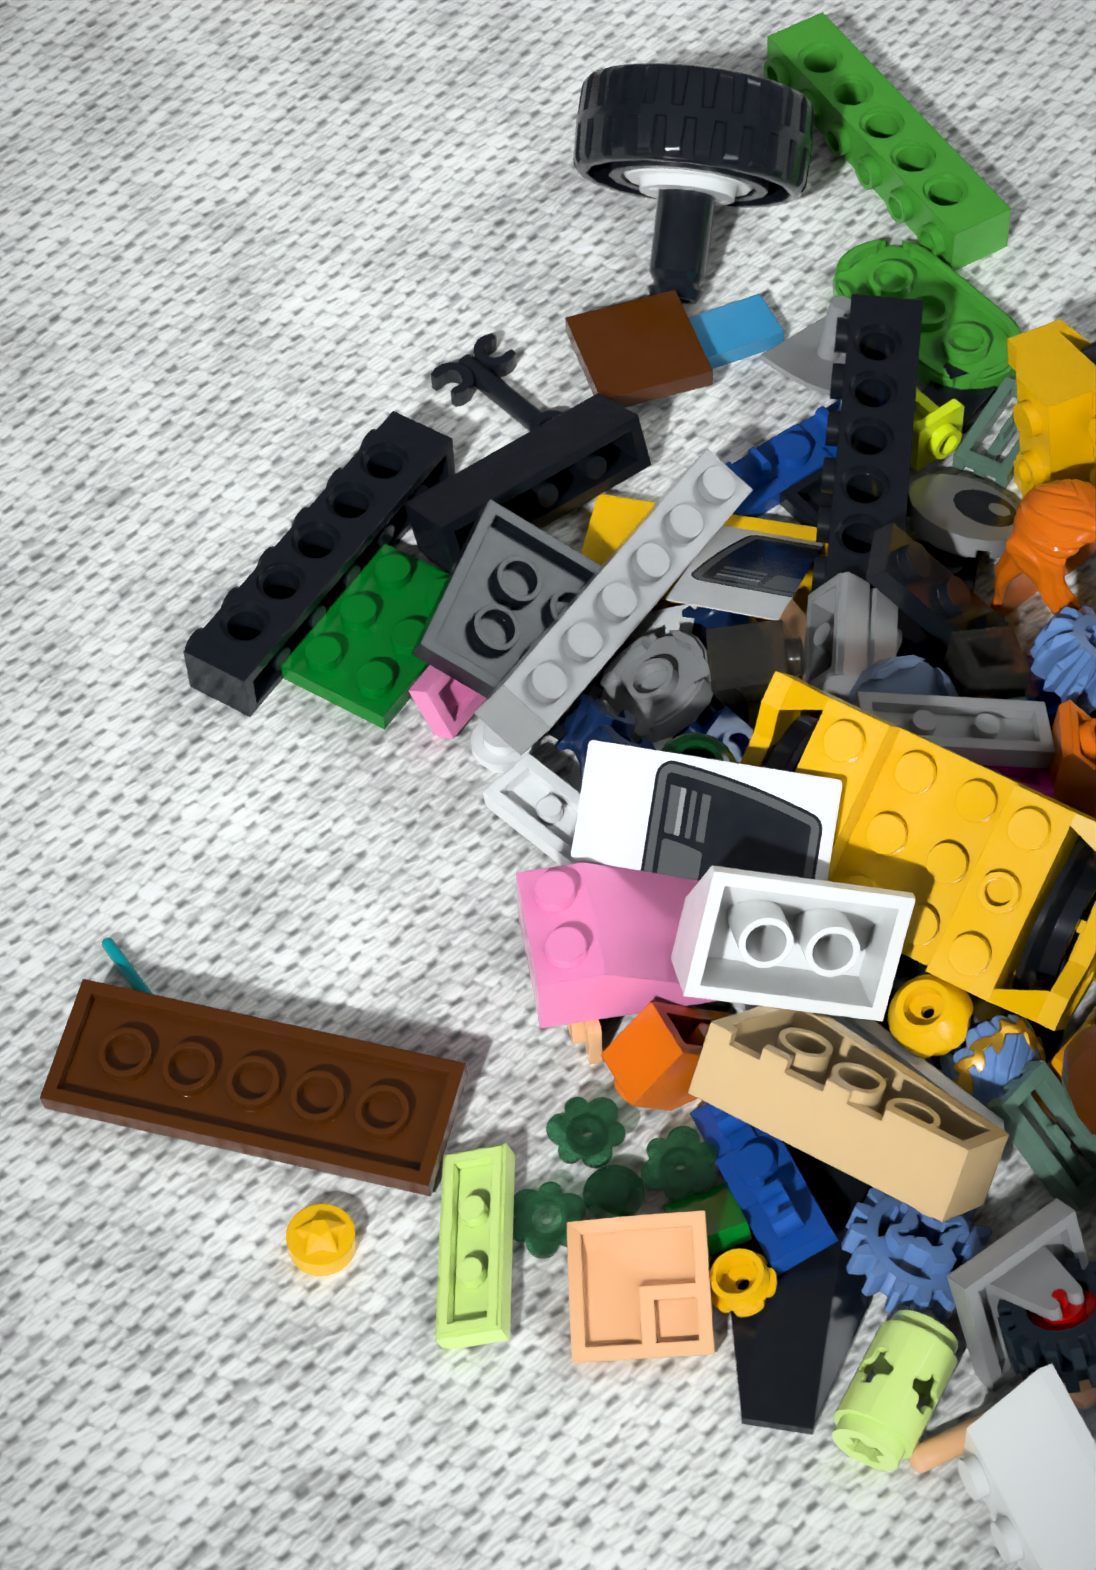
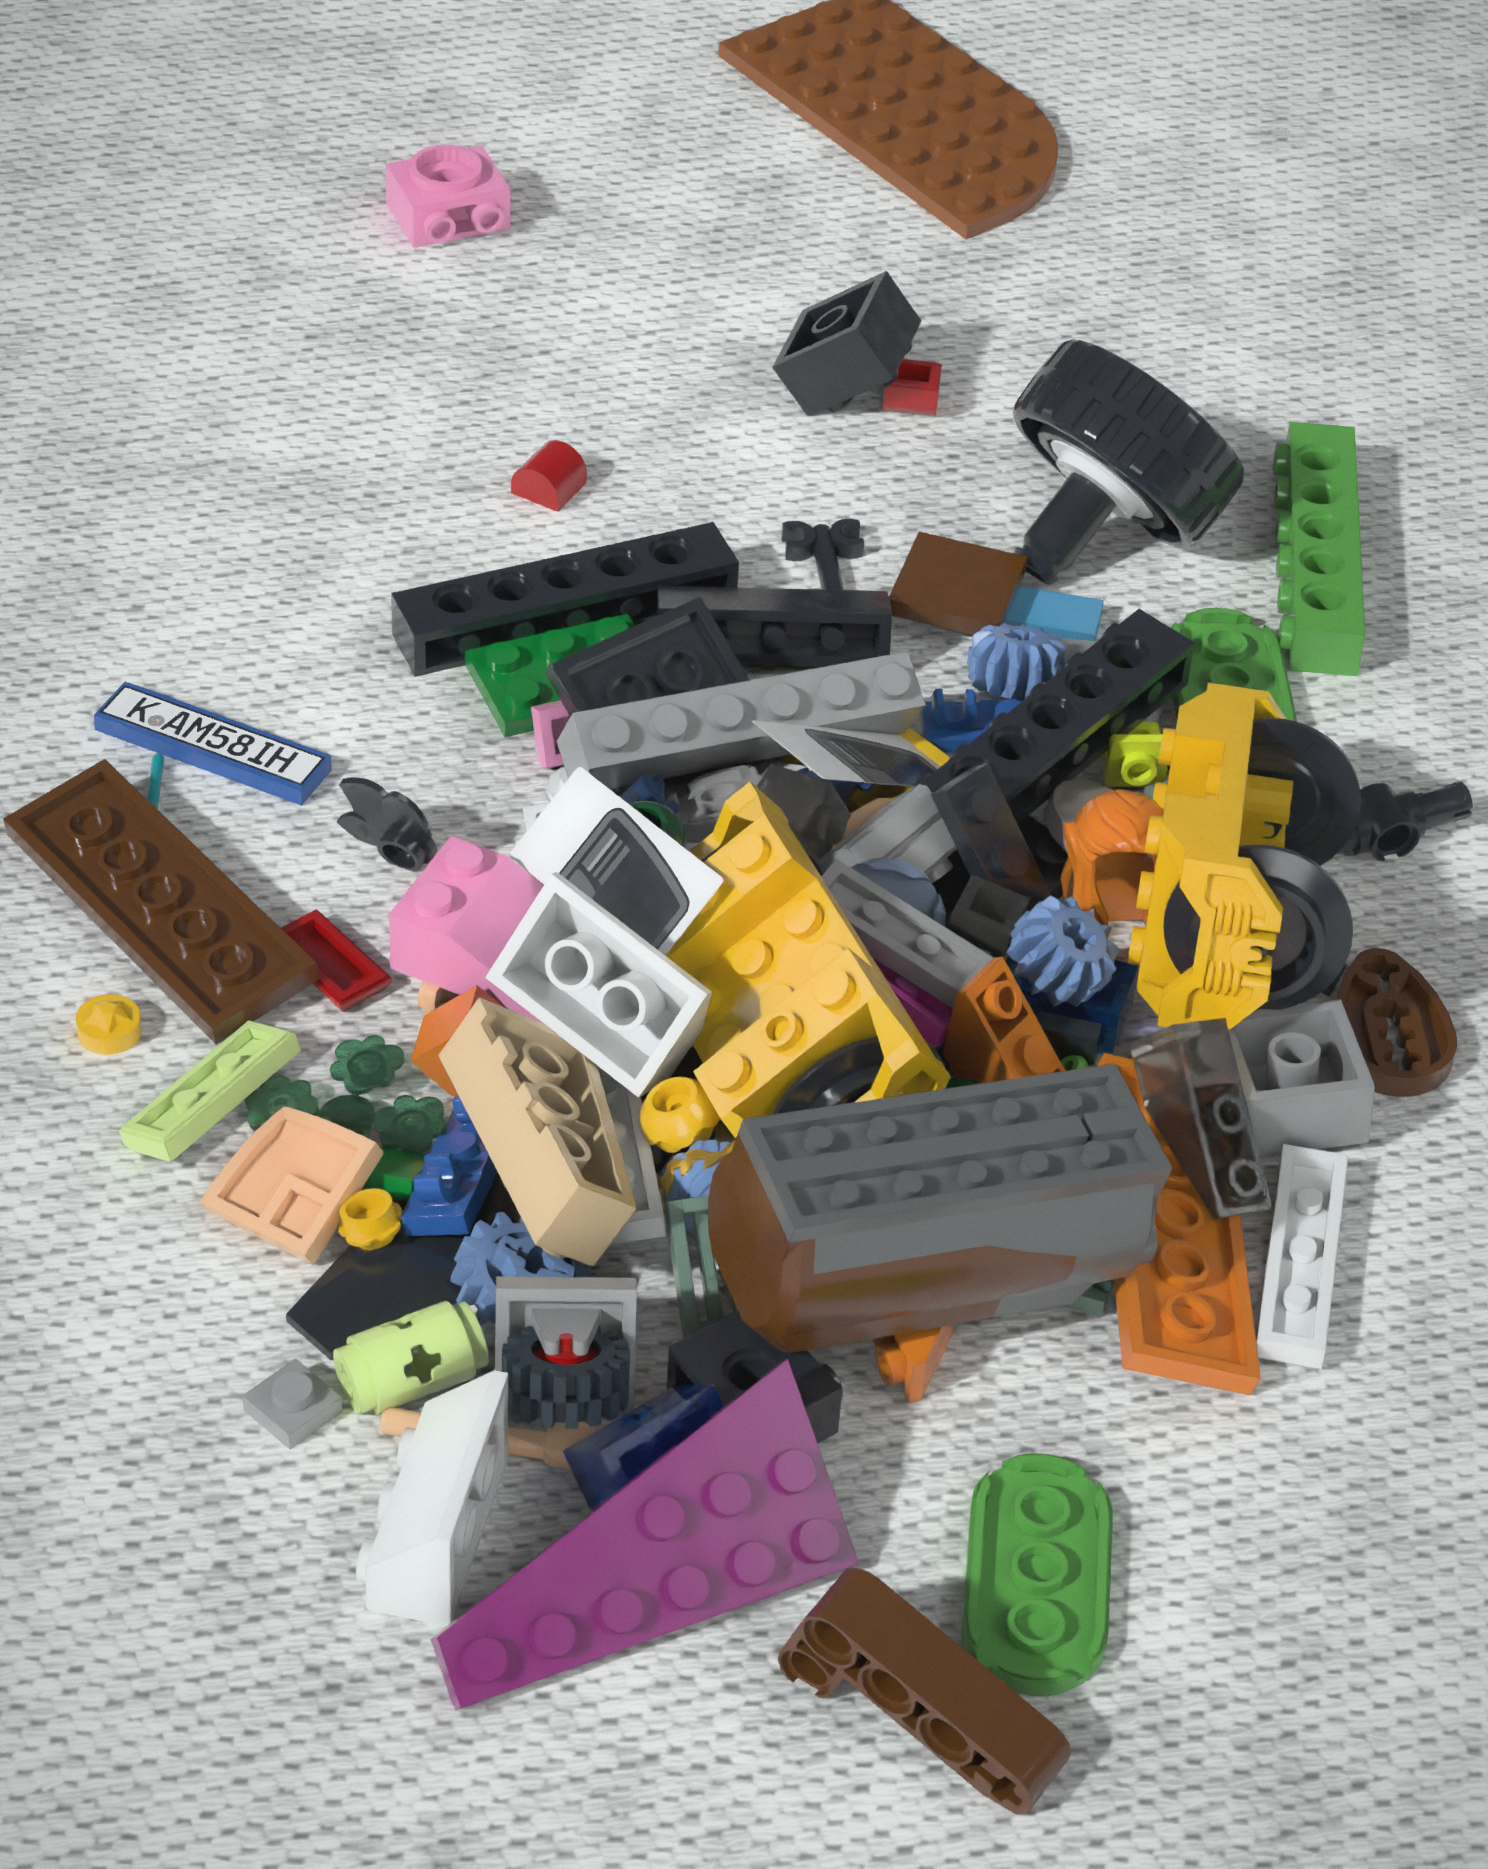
camera: 30 degrees right, 10 degrees down
(140, 896) = (213, 743): none -> tile
(186, 443) = (550, 475): none -> red brick
(343, 166) = (847, 345): none -> black brick
(409, 885) = (387, 822): none -> black plate
(415, 174) = (915, 388): none -> red brick
(485, 1048) = (343, 968): none -> red tile
(756, 397) = (1013, 659): none -> medium blue gear
(828, 1500) = (292, 1403): none -> light grey plate

